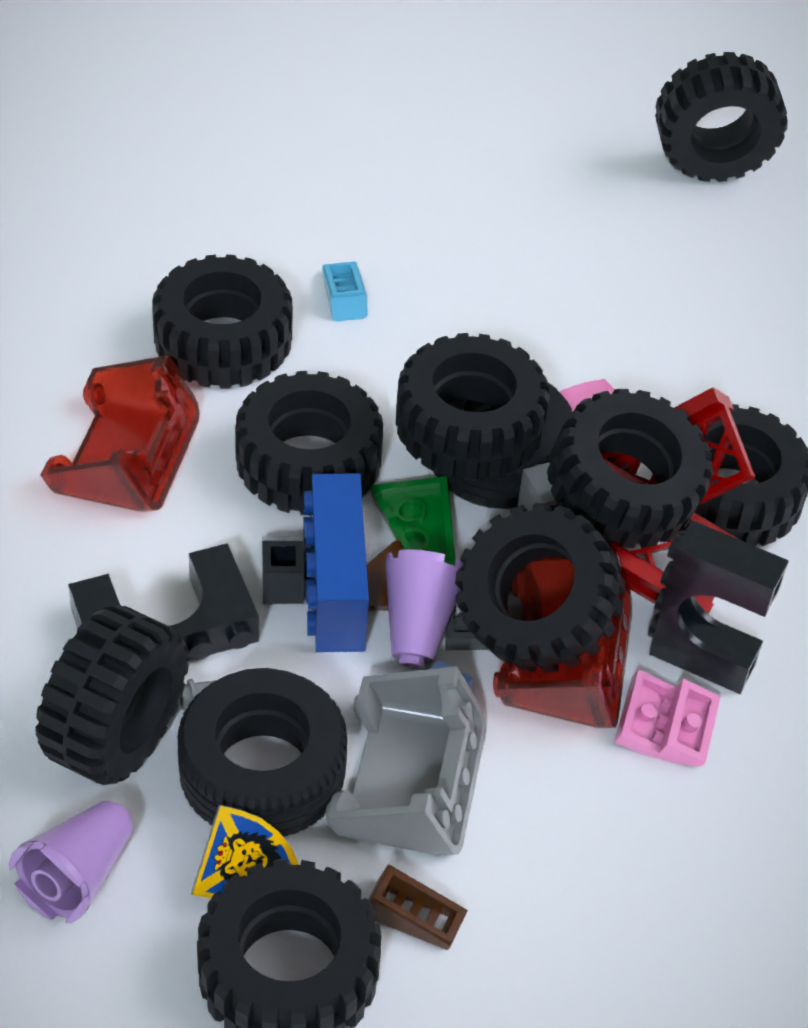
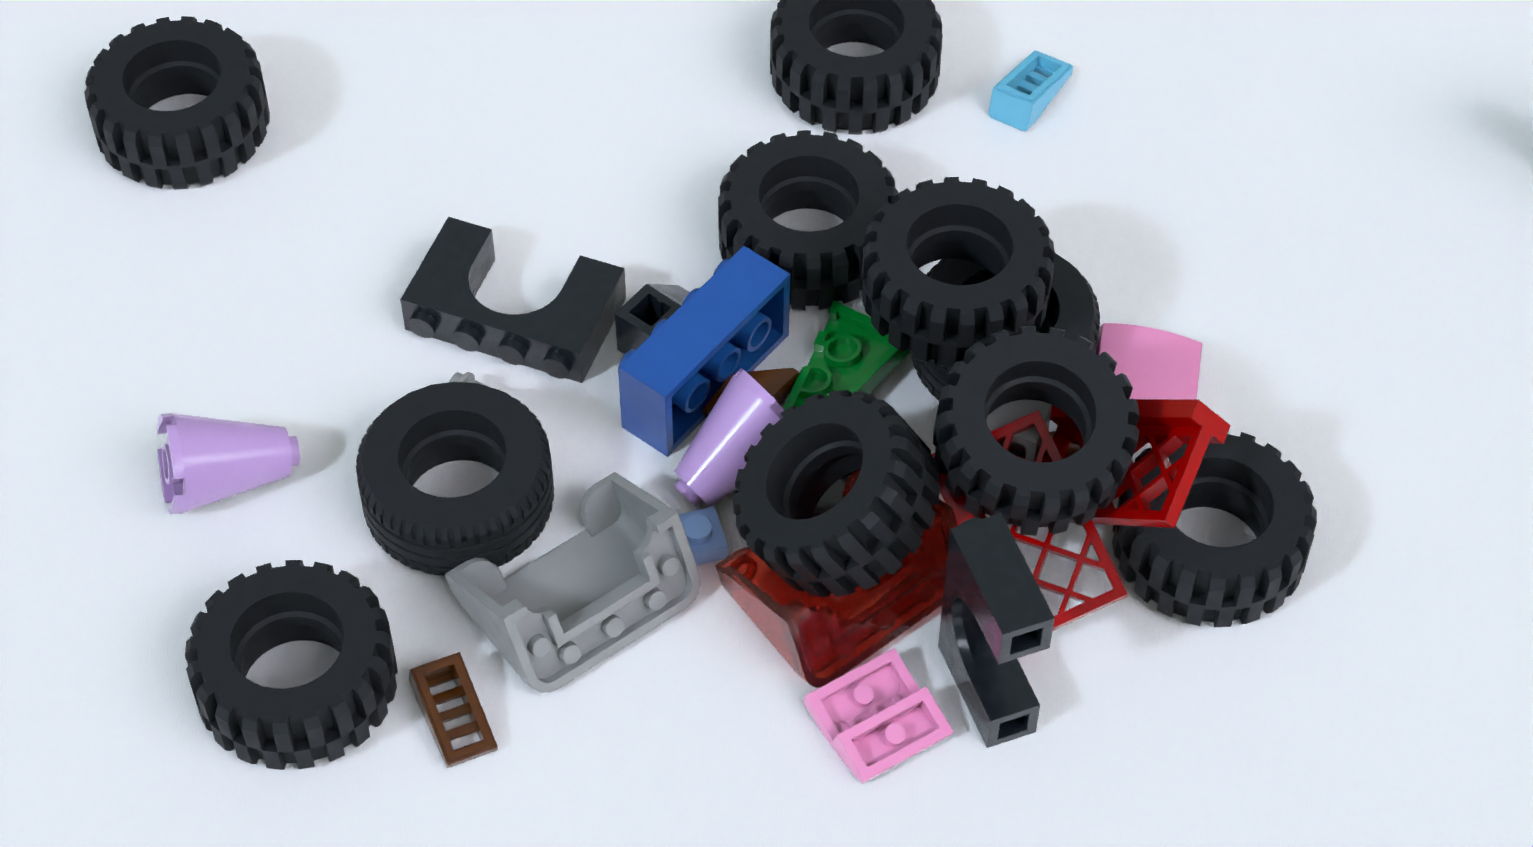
camera: 45 degrees right, 5 degrees up
(112, 694) = (354, 291): black tyre -> none
(135, 439) = (660, 126): clear red windscreen -> none
(235, 844) = (351, 543): shield -> none

